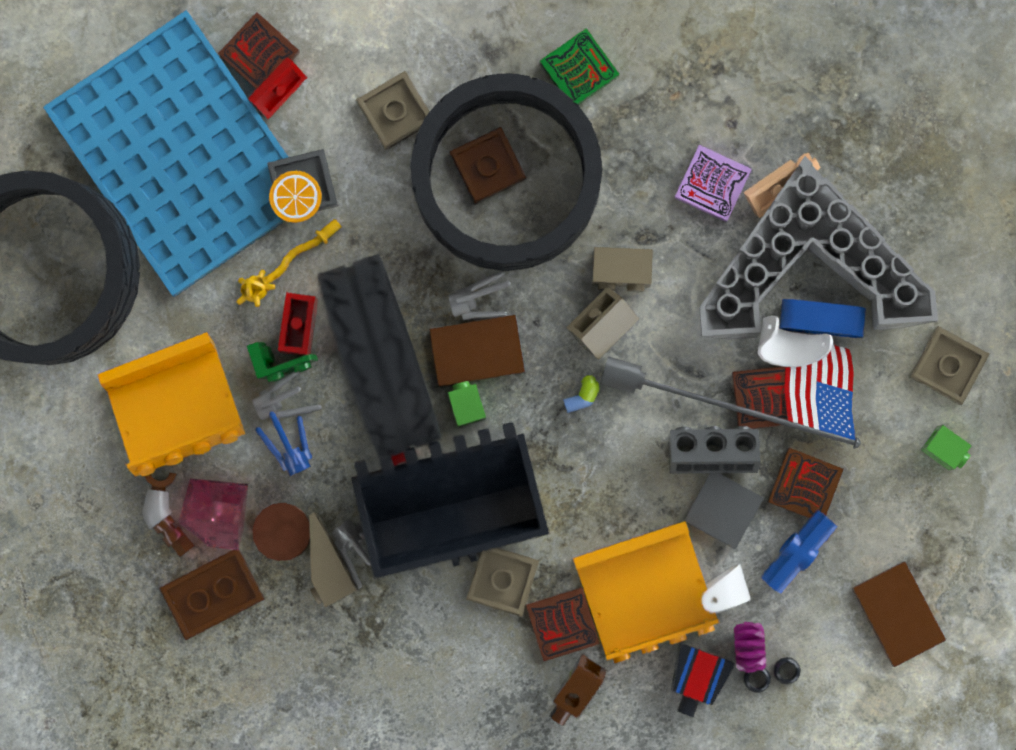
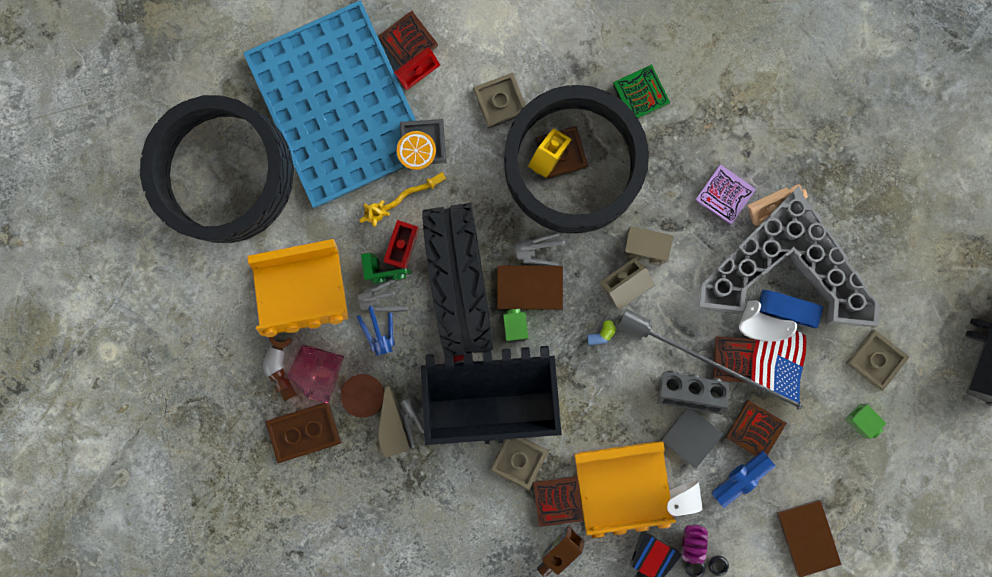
camera: 10 degrees right, 0 degrees up
(471, 169) = (549, 152): none -> yellow slope

